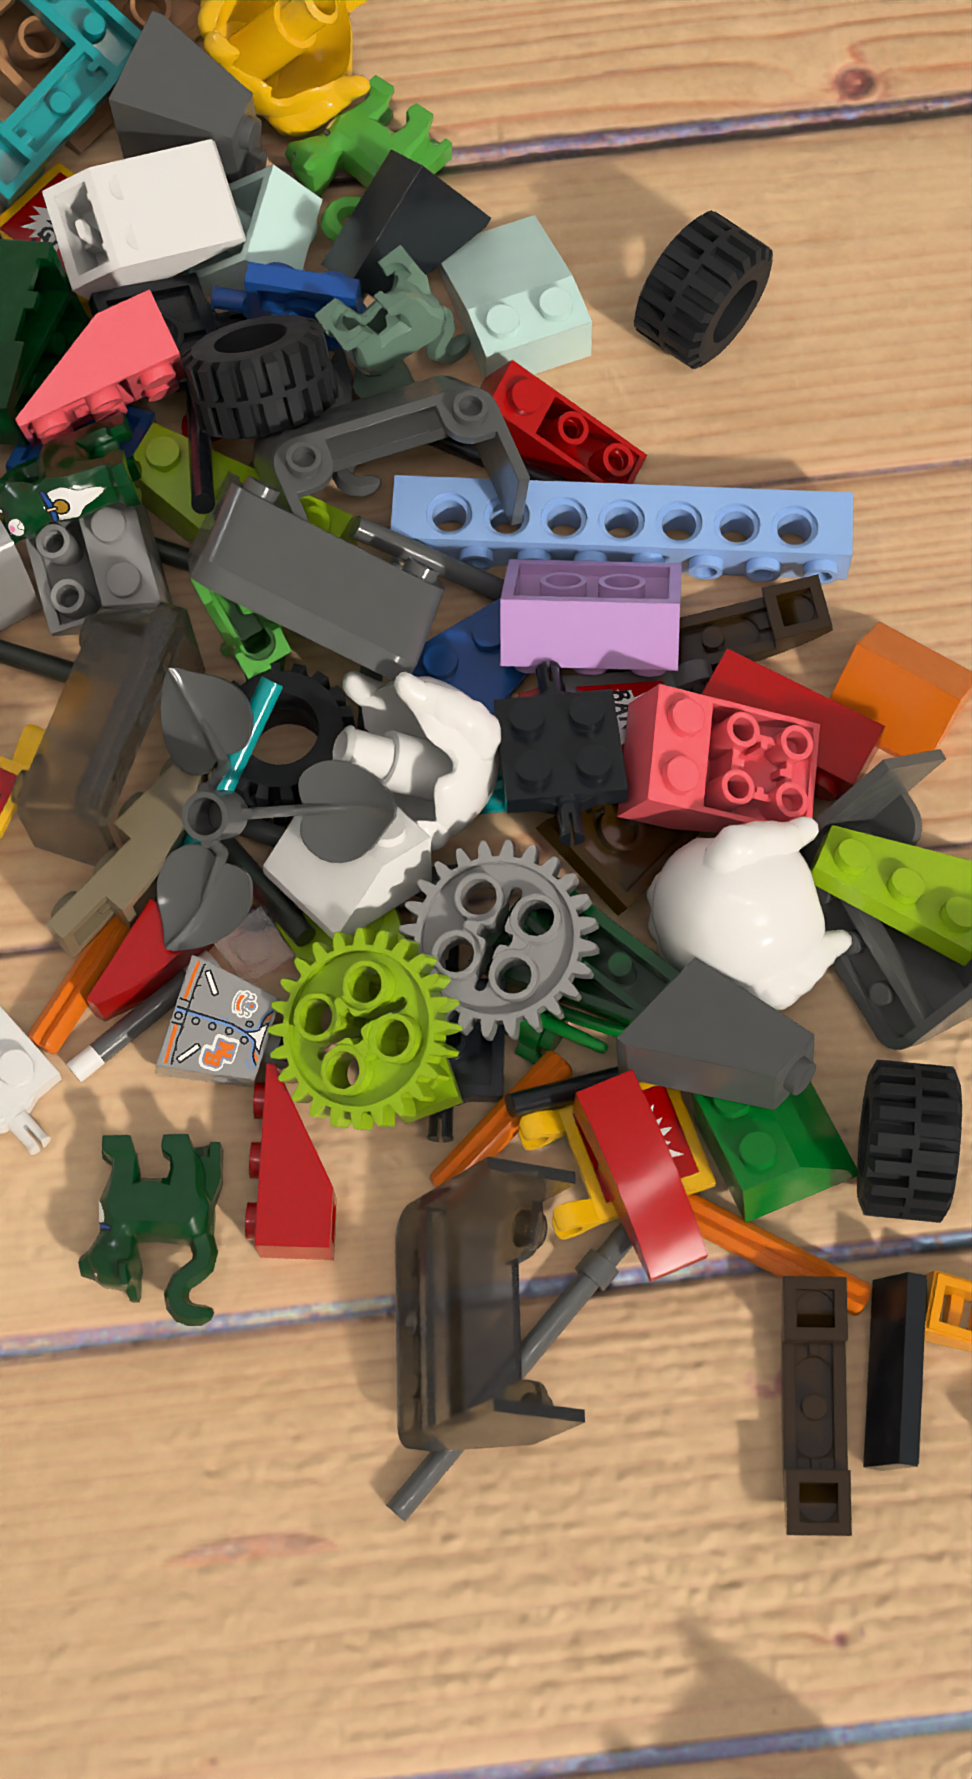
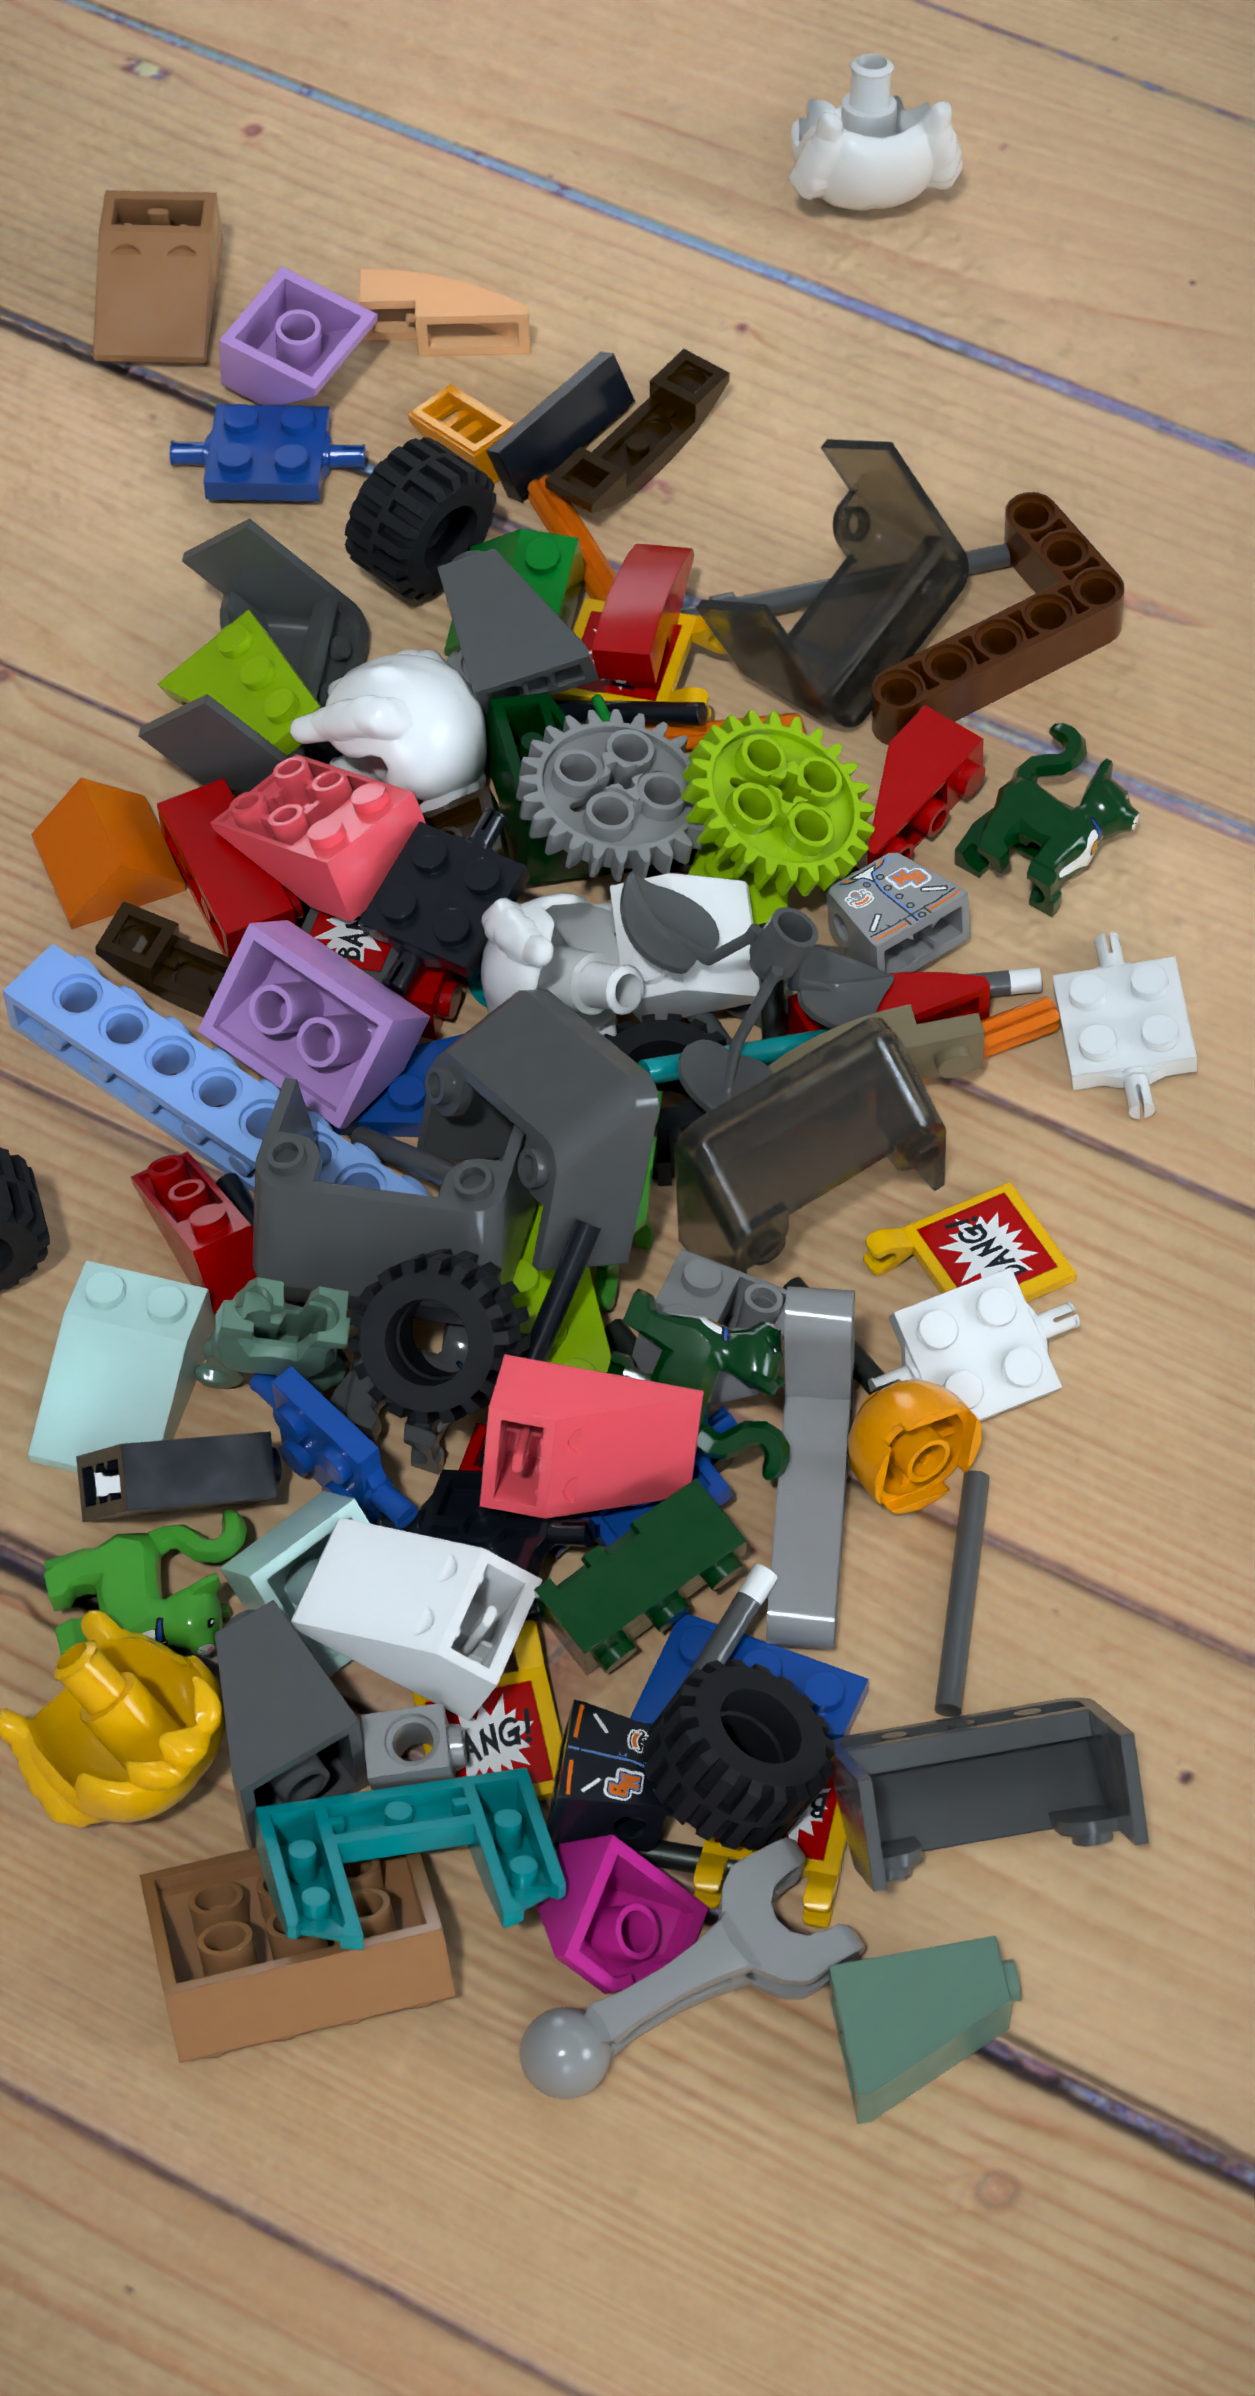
camera: 145 degrees left, 15 degrees down
(87, 145) = (393, 1731): none -> light grey brick
(318, 1407) = (1067, 618): none -> reddish brown beam

